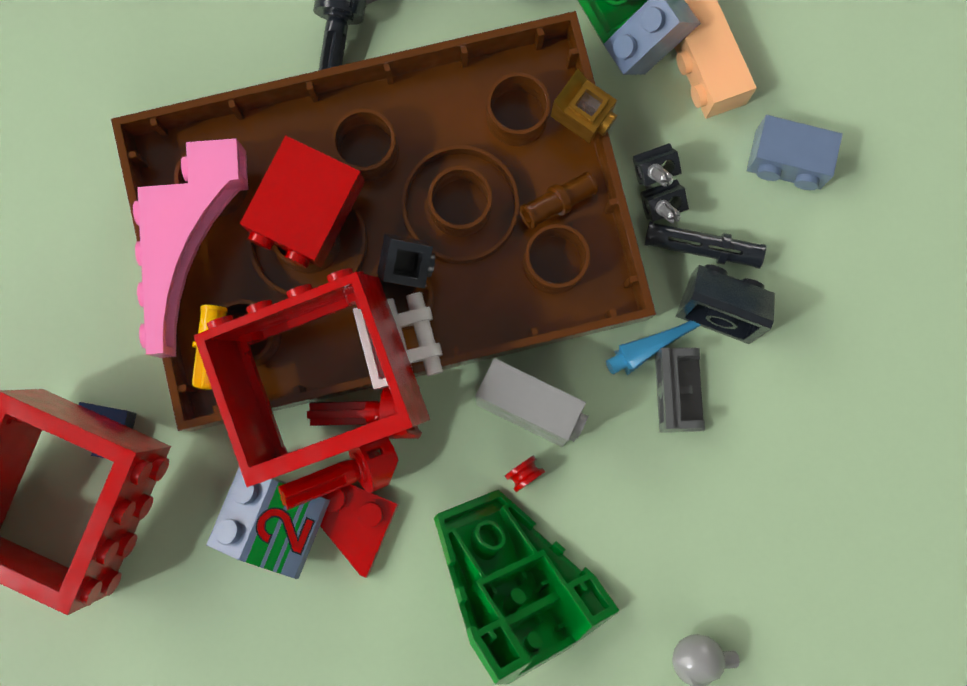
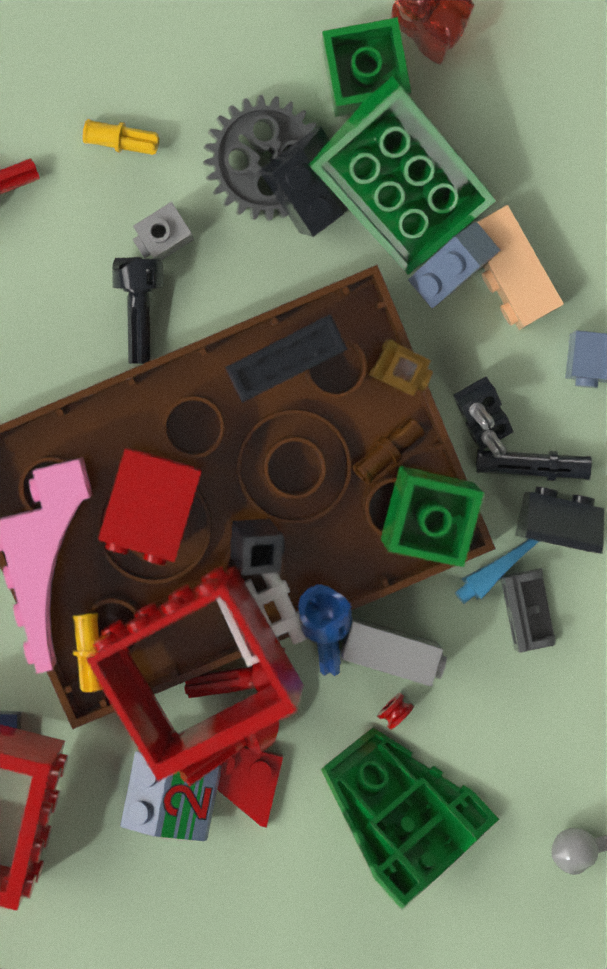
camera: 15 degrees left, 10 degrees up
(465, 358) = (325, 623): none -> blue piece
(469, 81) = (286, 358): none -> black plate
(595, 258) = (432, 516): none -> green brick

